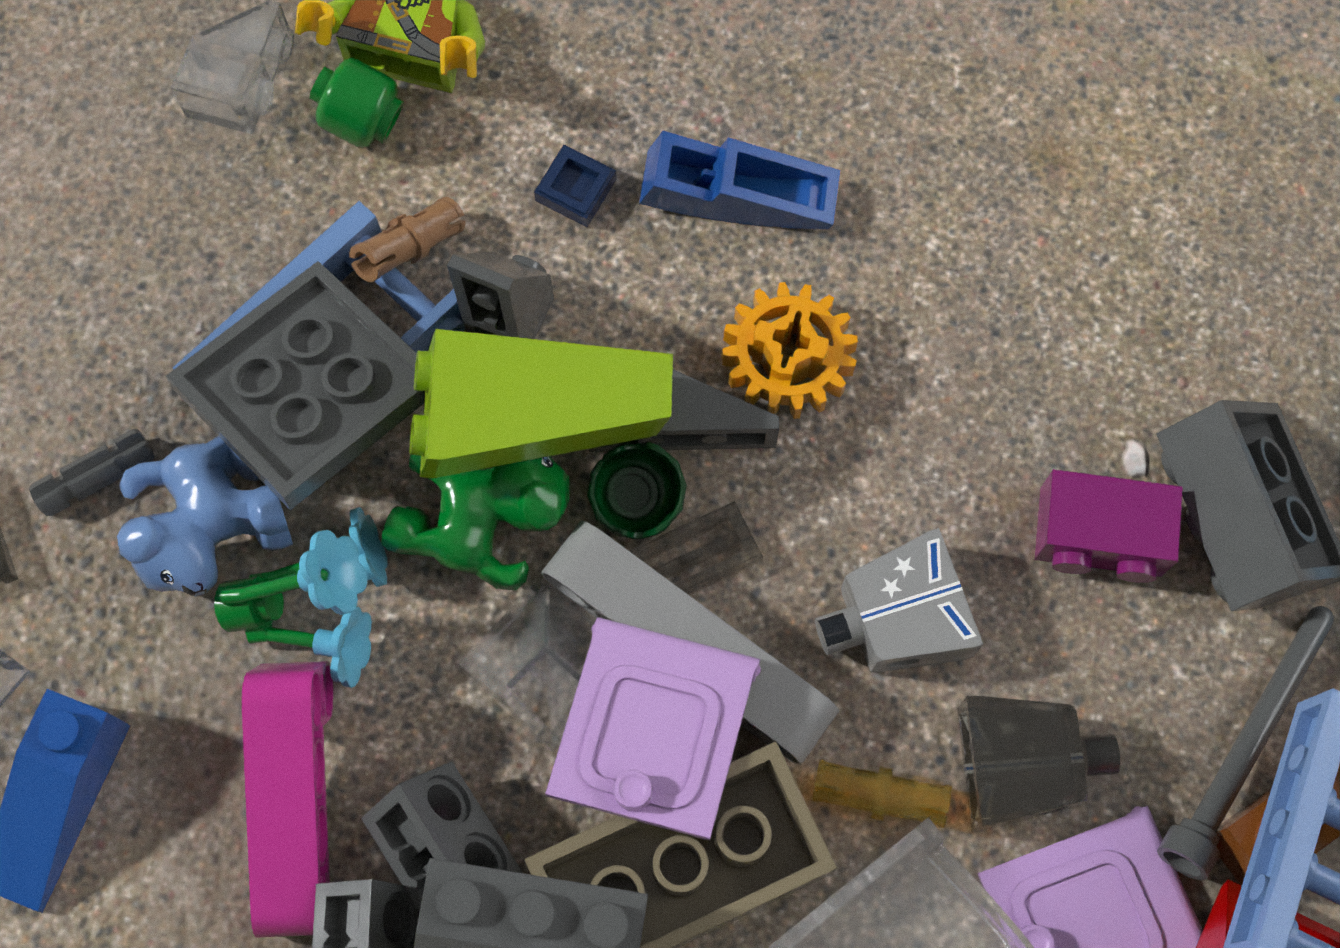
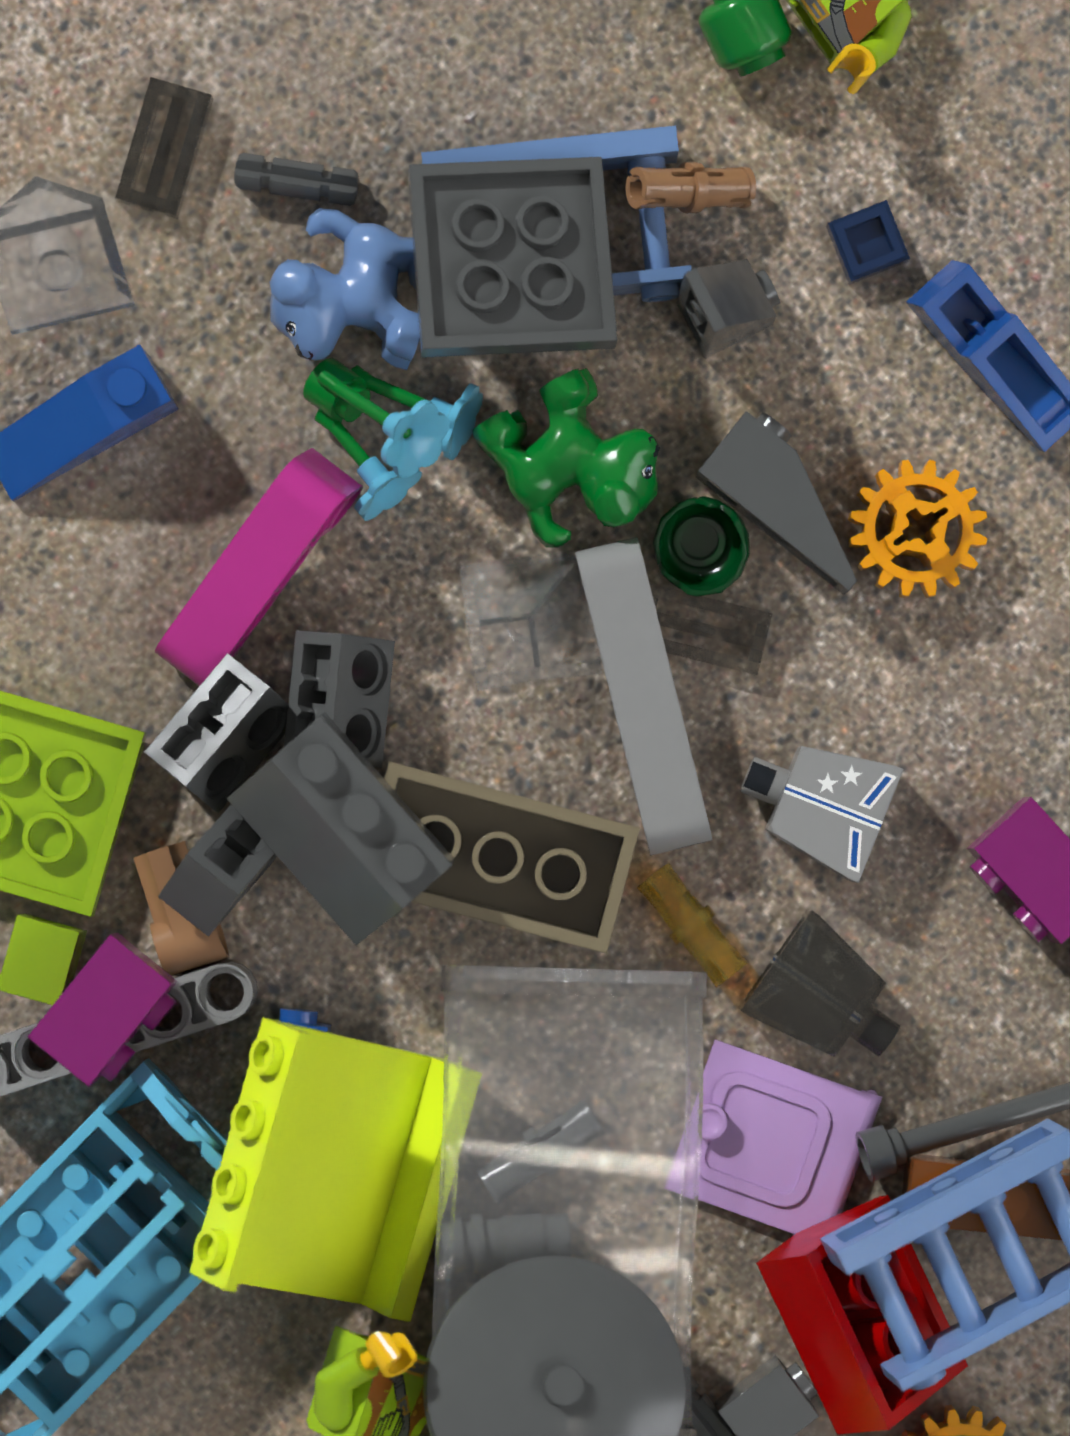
camera: 40 degrees right, 15 degrees up
(531, 399) = (666, 417): lime slope -> none
(653, 728) = (564, 735): lavender container -> none

